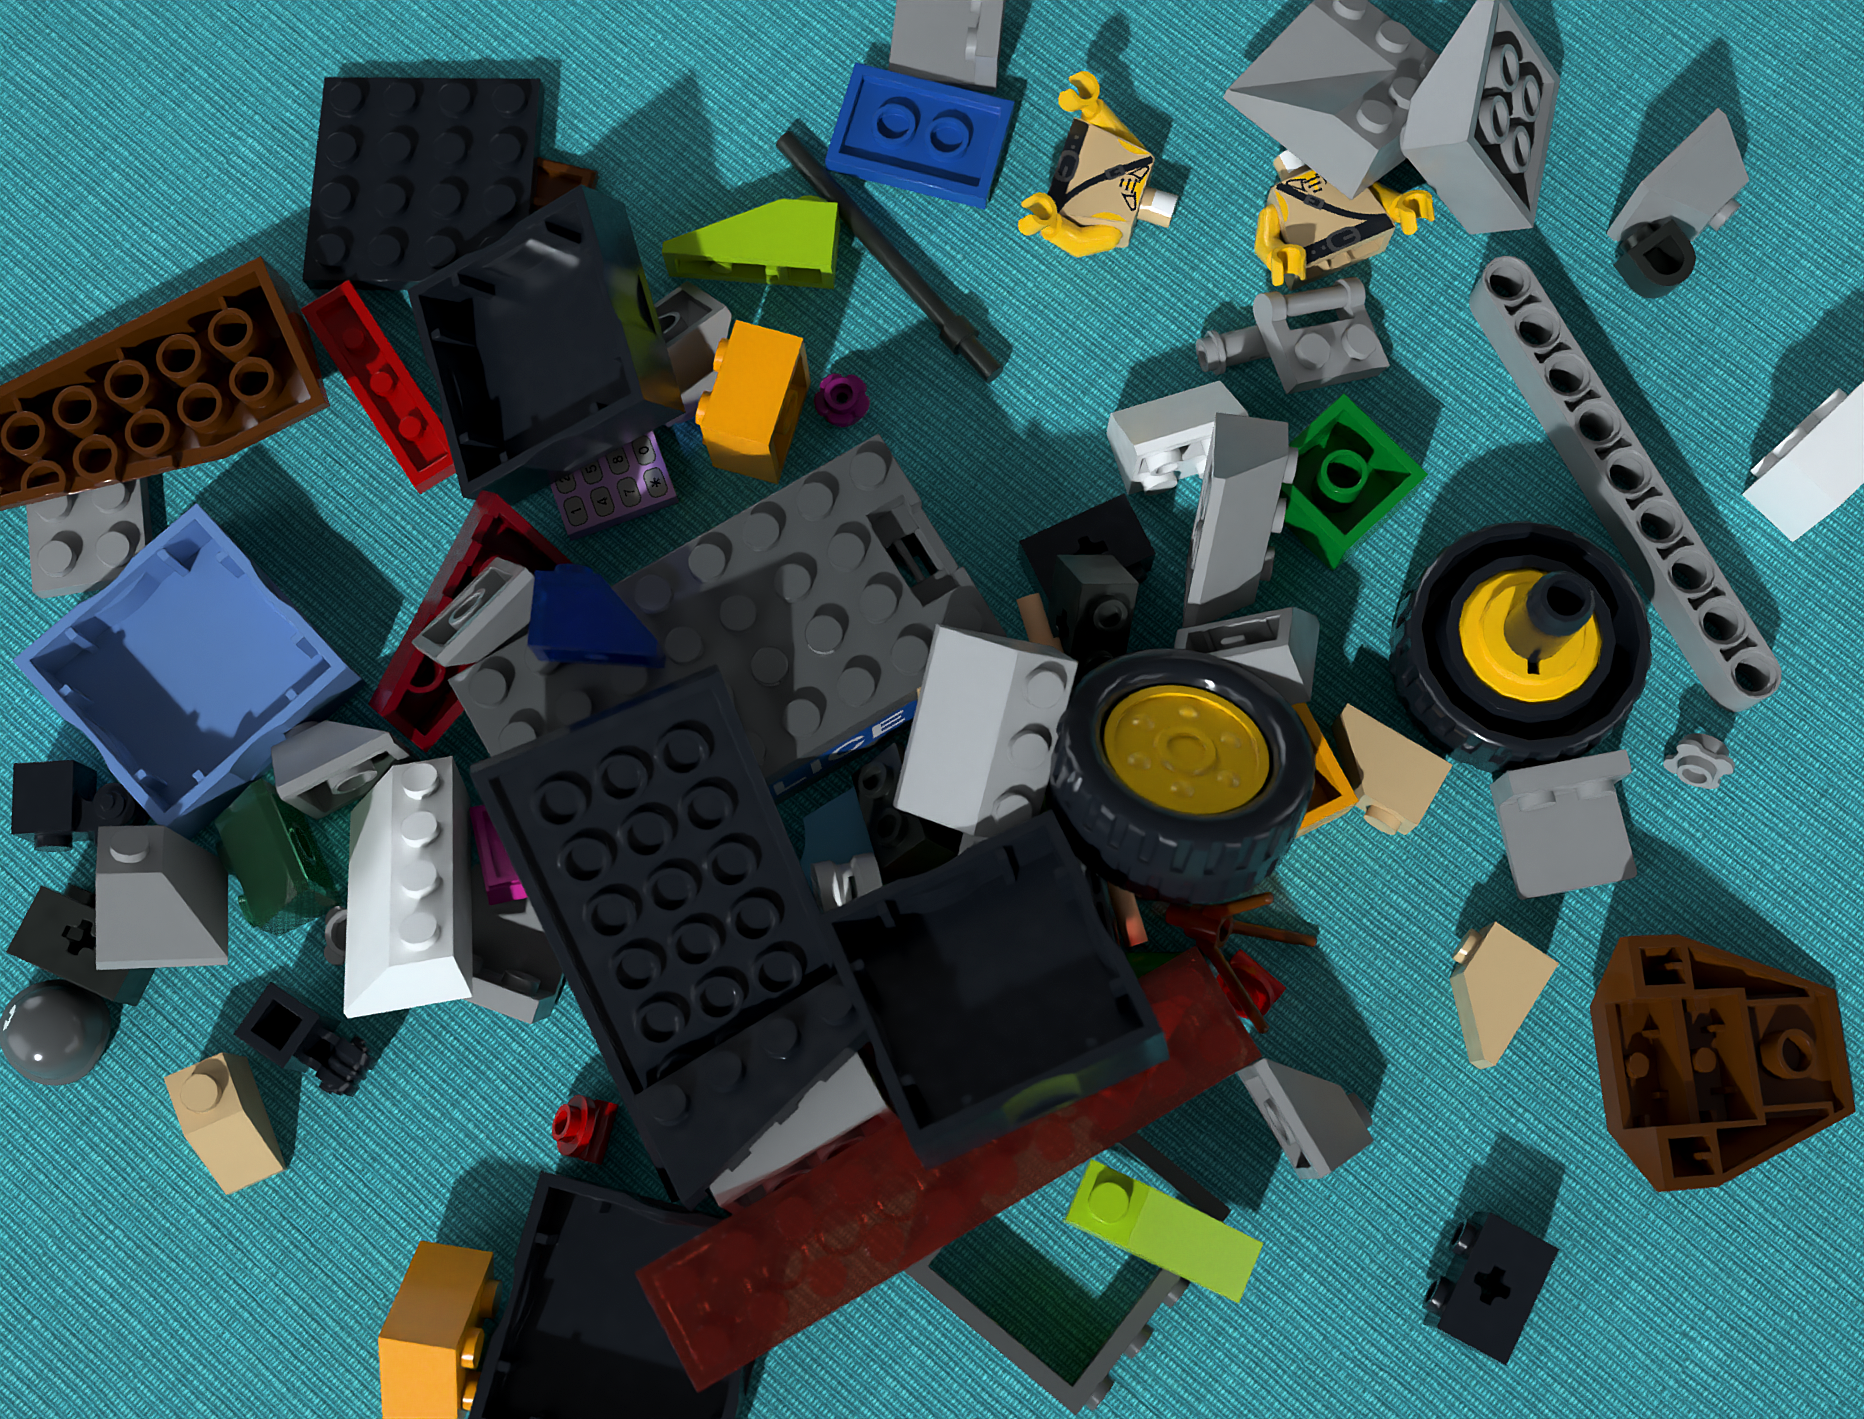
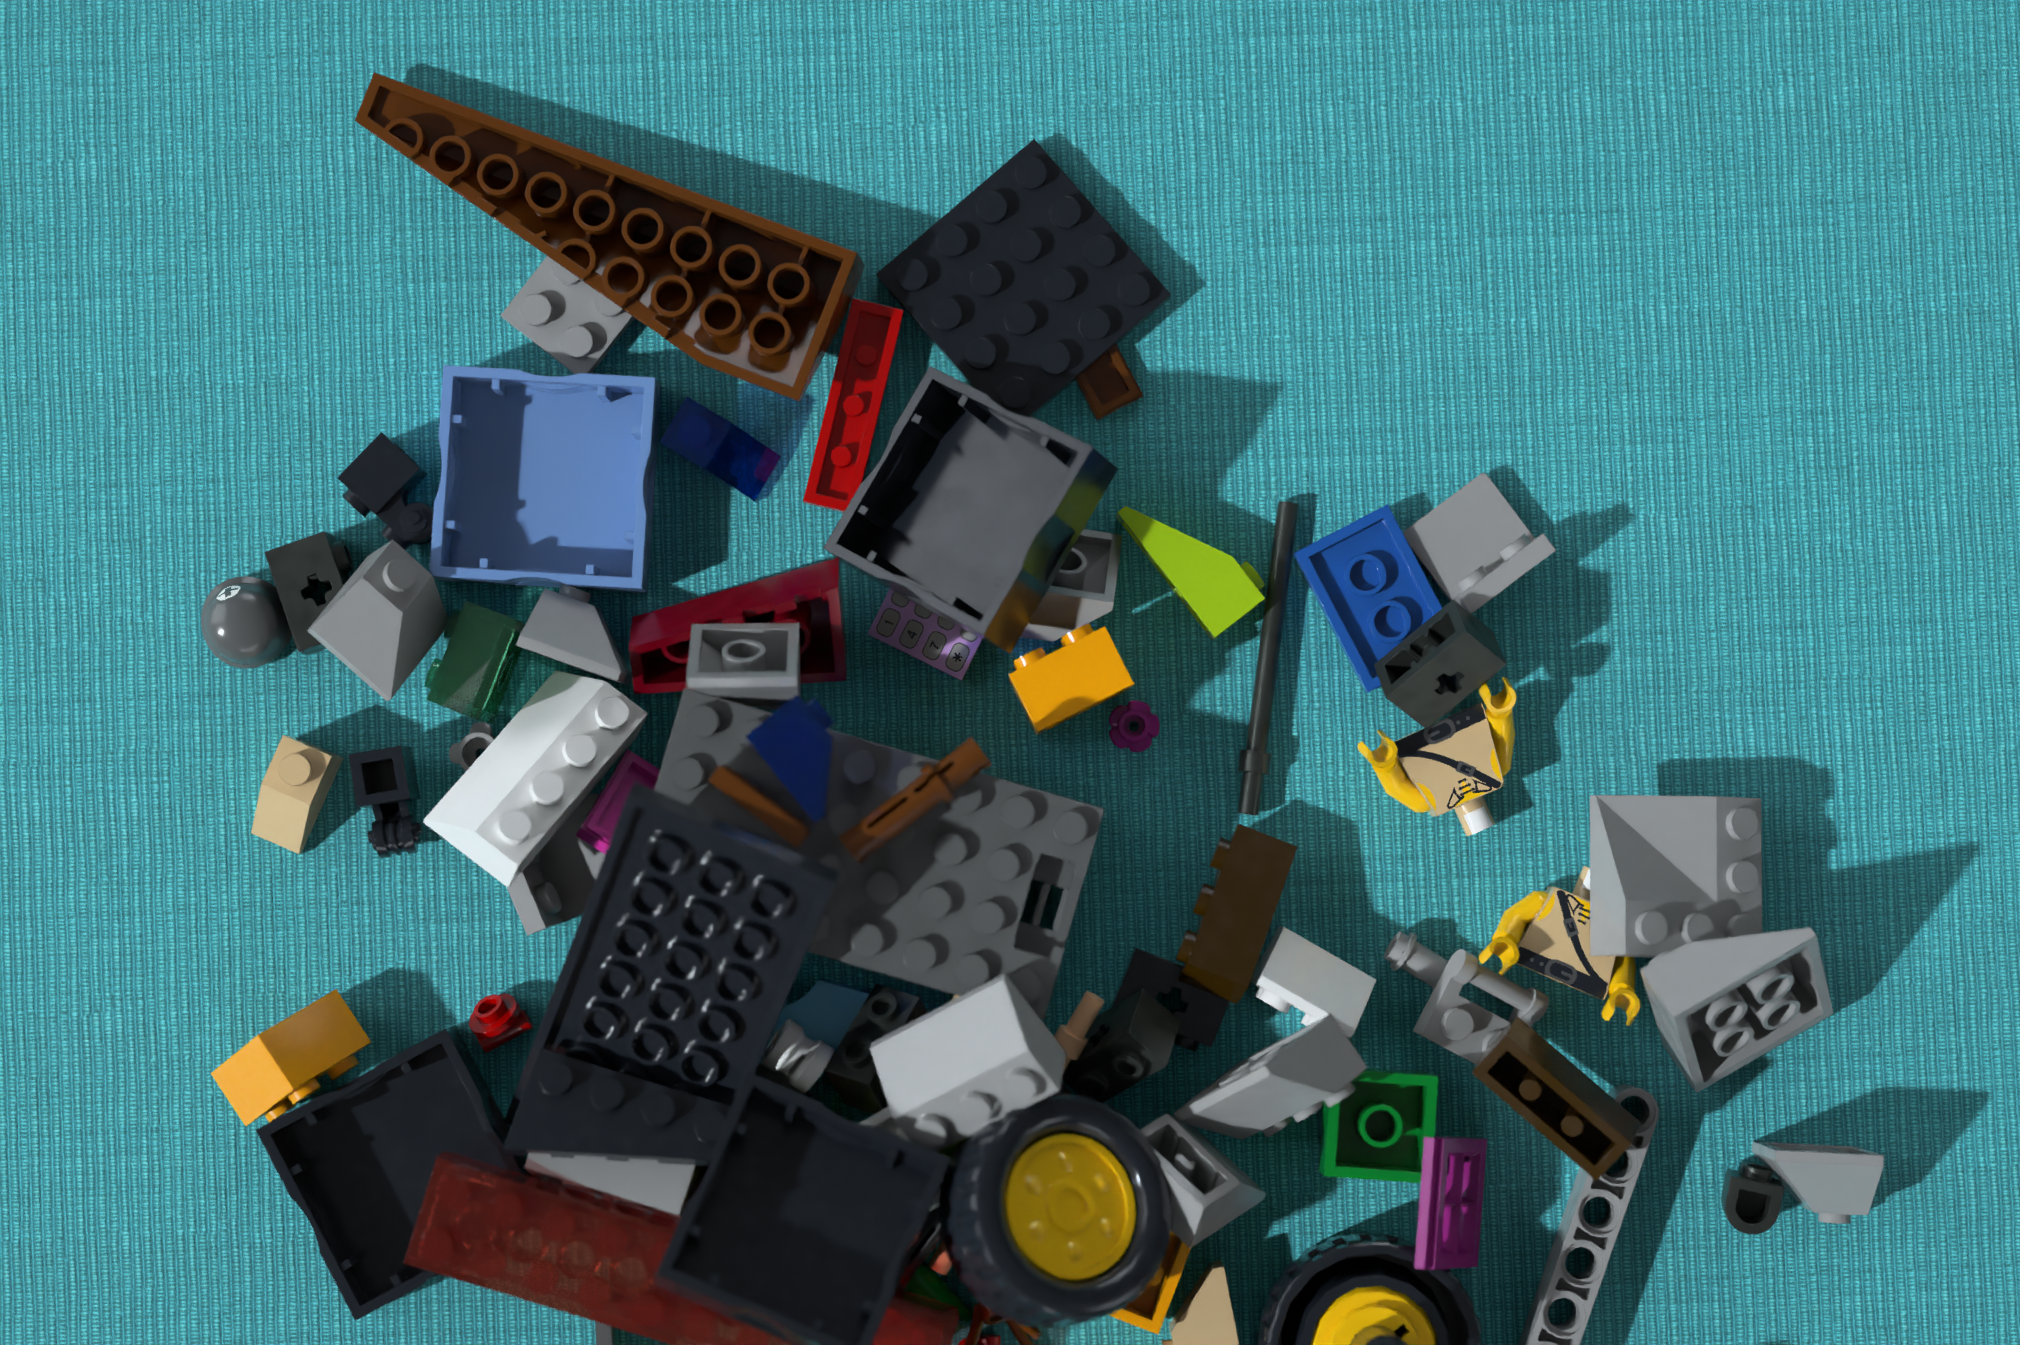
camera: 40 degrees right, 10 degrees up
(307, 516) = (720, 449): none -> clear blue slope
(592, 693) = (760, 805): none -> reddish brown tile
(724, 542) = (915, 800): none -> reddish brown pin
(1014, 113) = (1439, 664): none -> pearl dark grey brick
(1065, 440) = (1235, 912): none -> dark brown brick
(1447, 314) = (1556, 1098): none -> dark brown brick
(1454, 475) = (1450, 1202): none -> magenta piece

